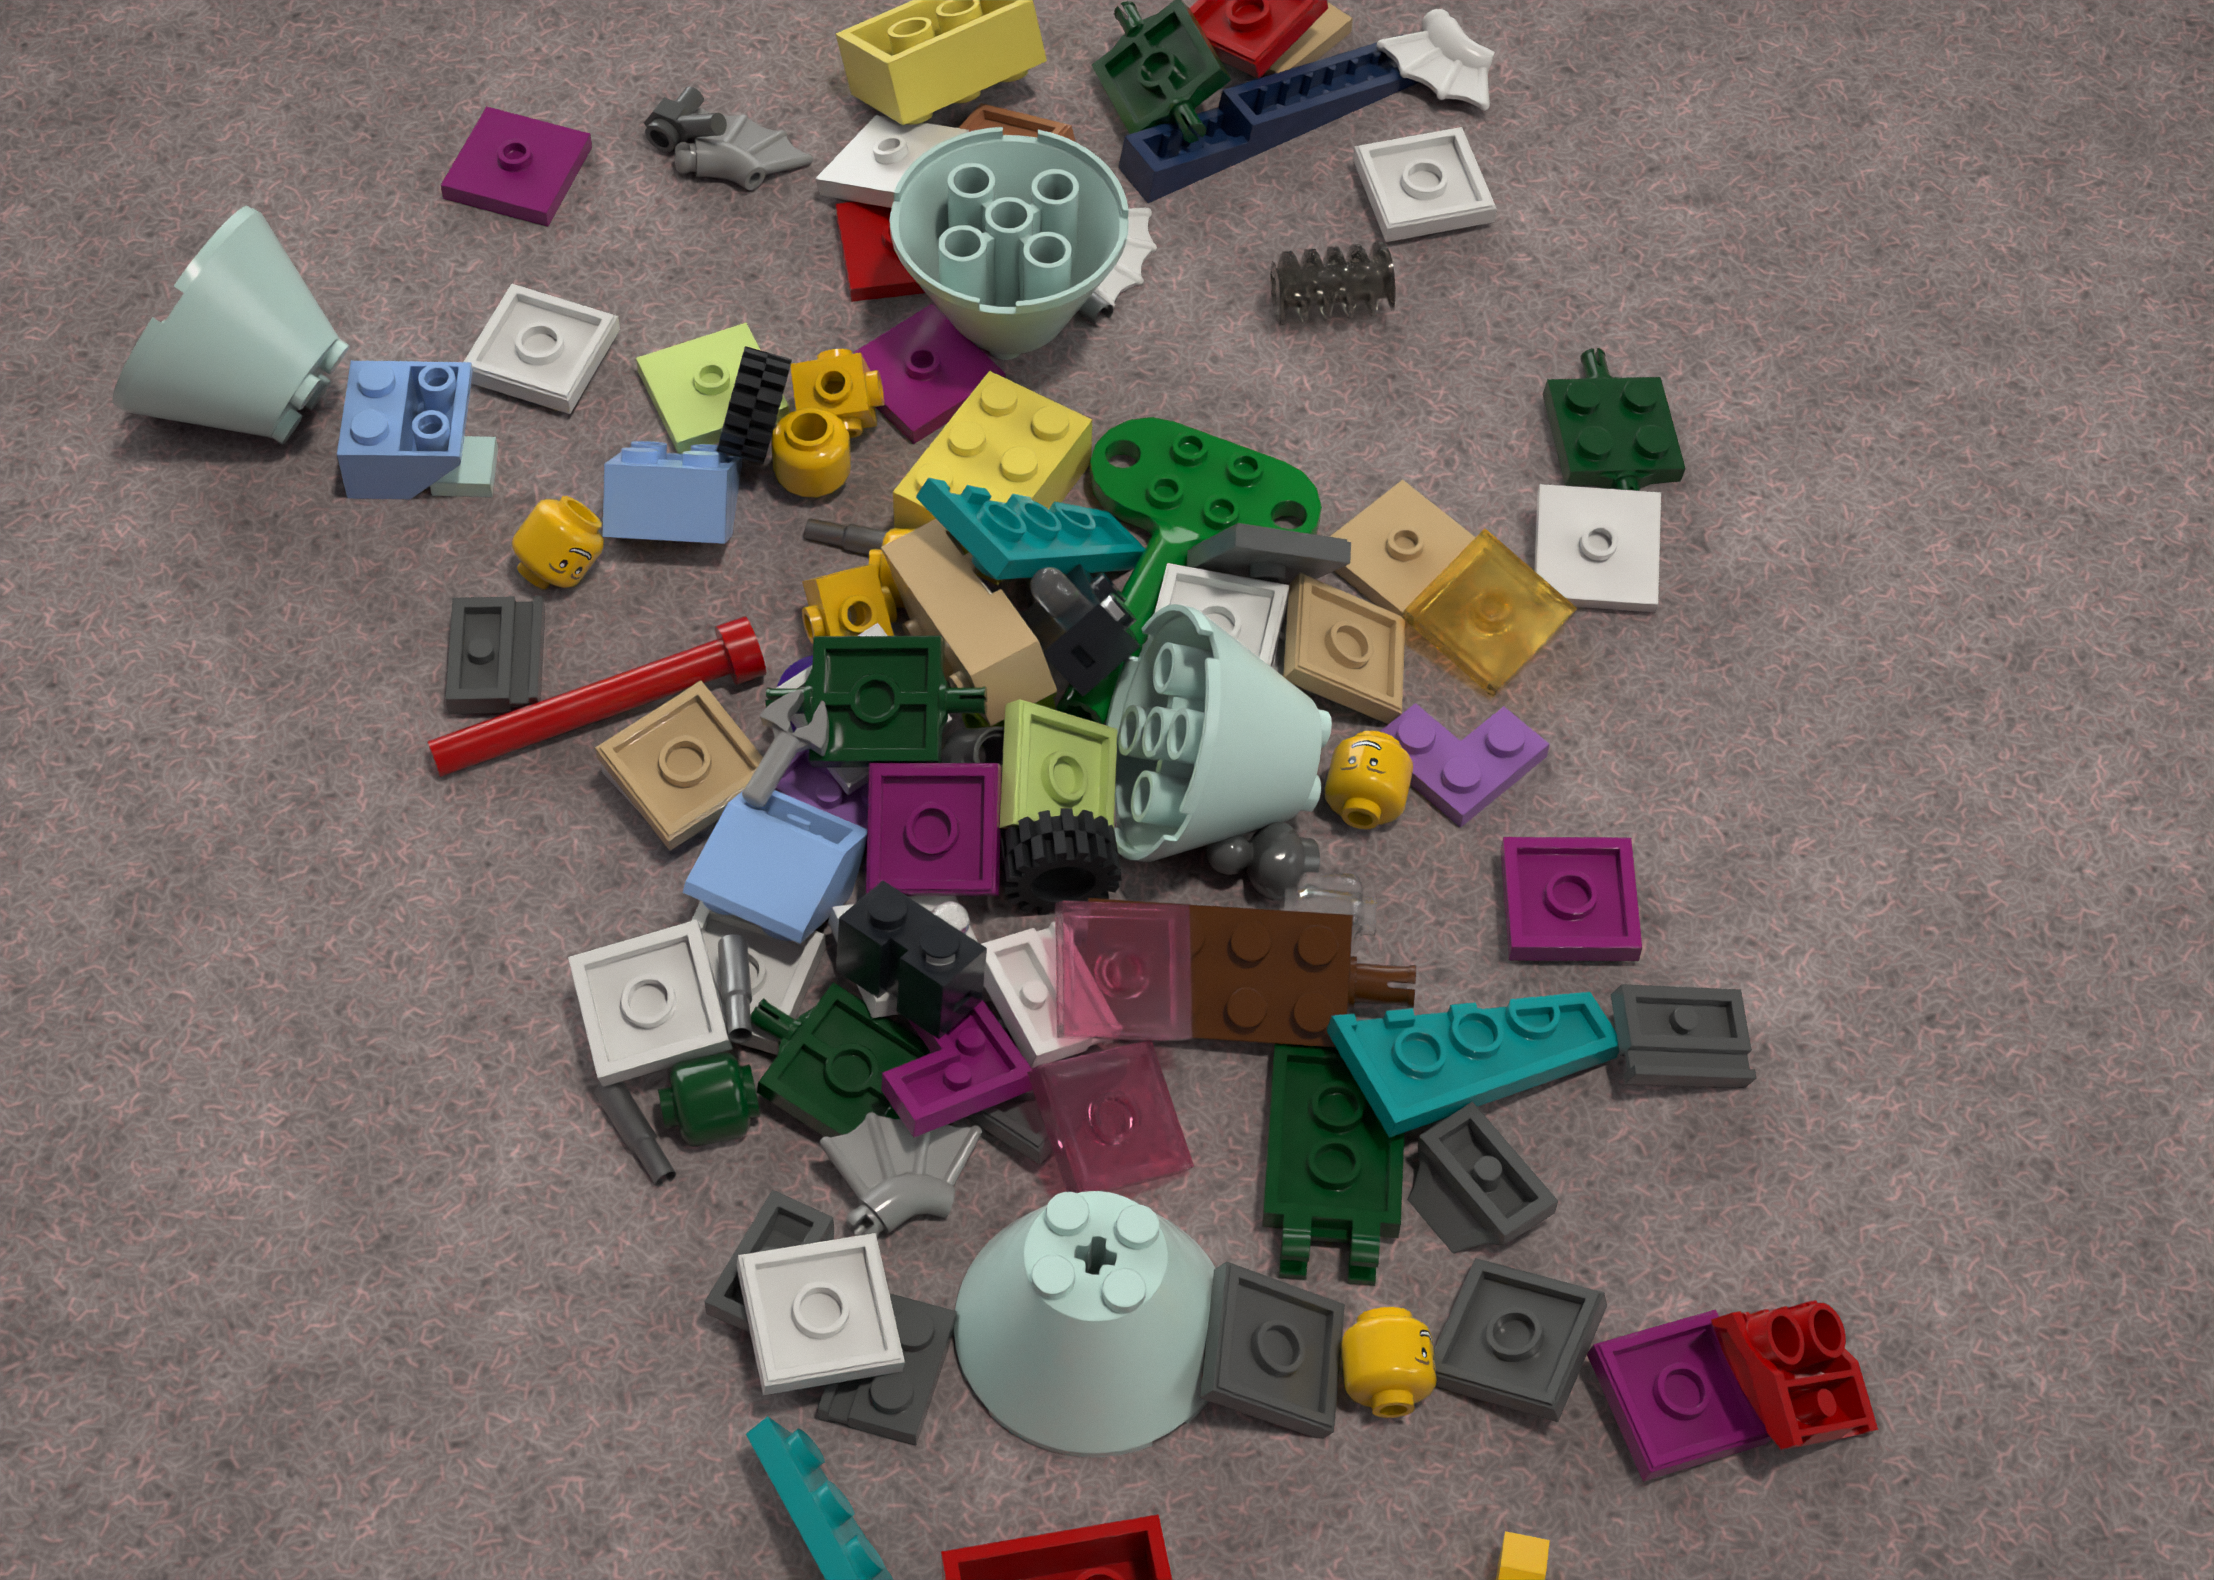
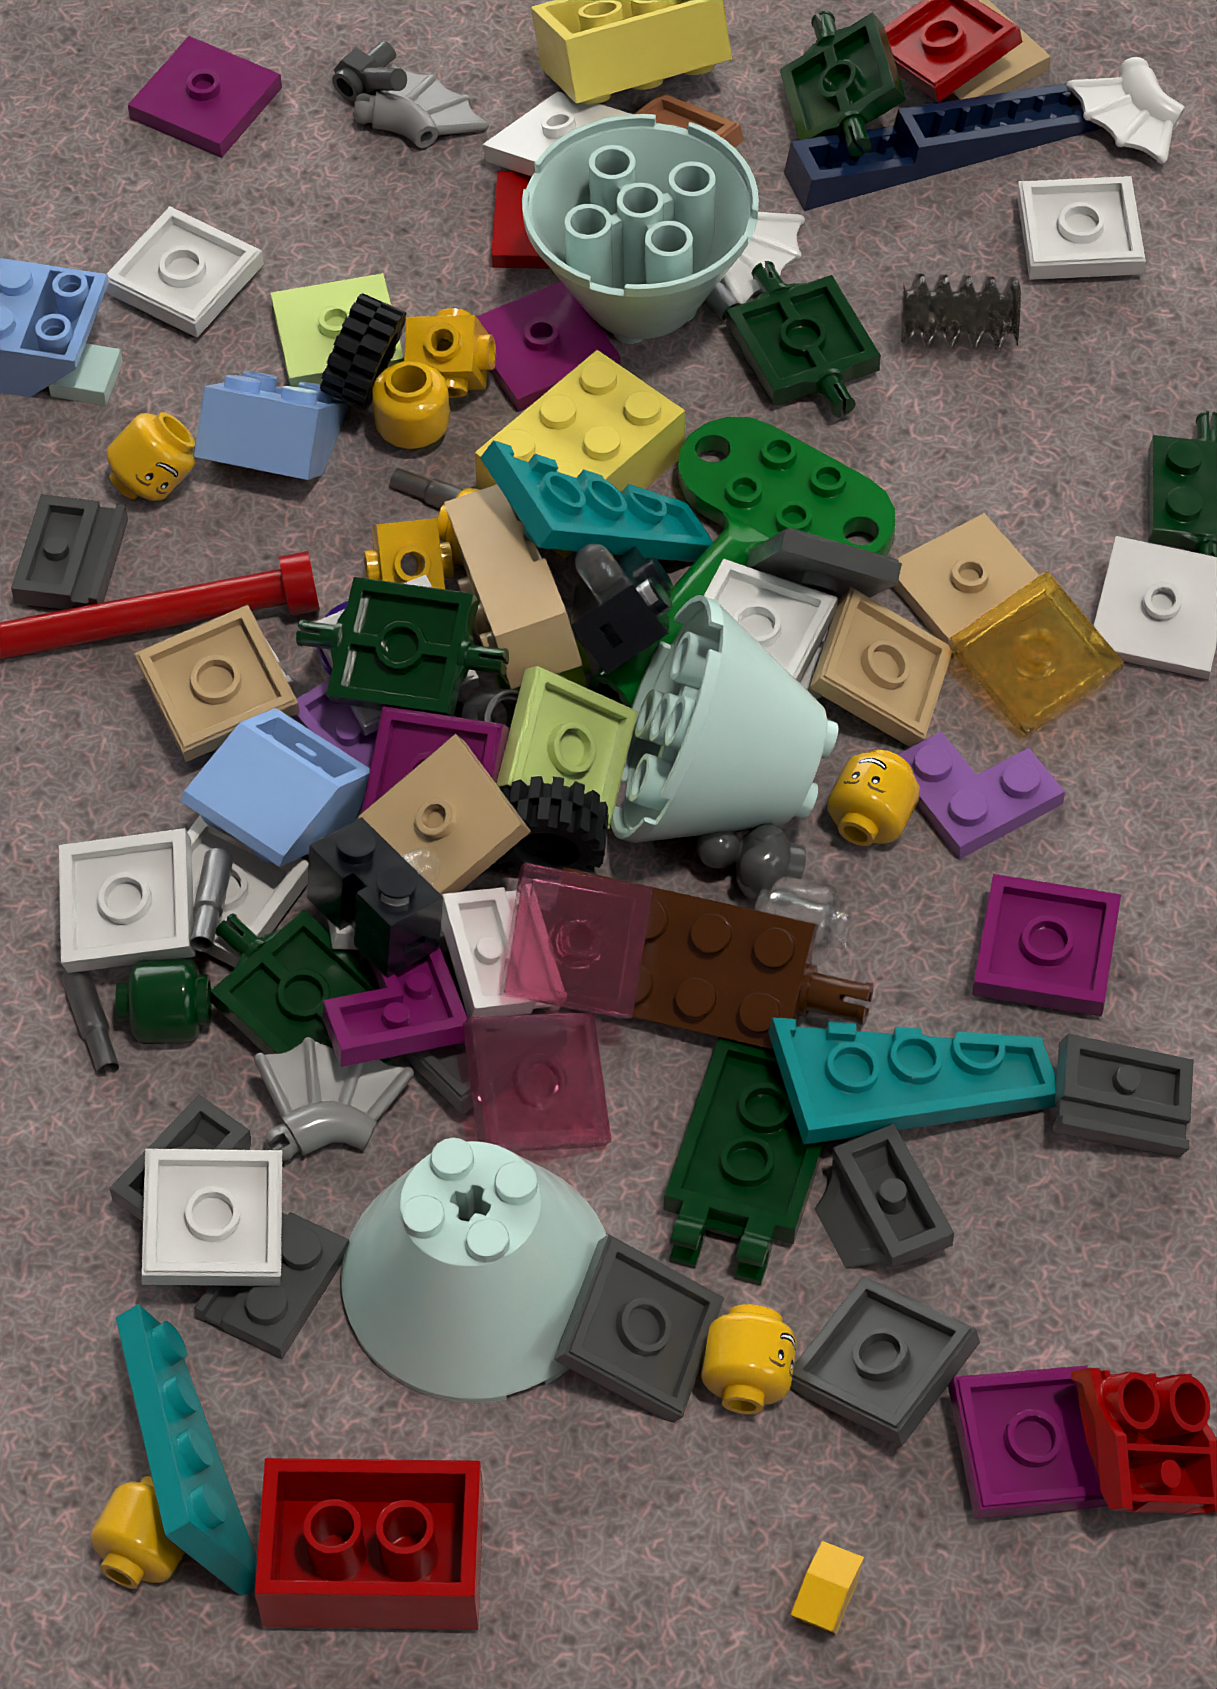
camera: 15 degrees right, 0 degrees up
(785, 744) = (305, 675): light grey bar -> none
(964, 858) = (451, 810): none -> tan plate
(1182, 332) = (802, 339): none -> dark green plate

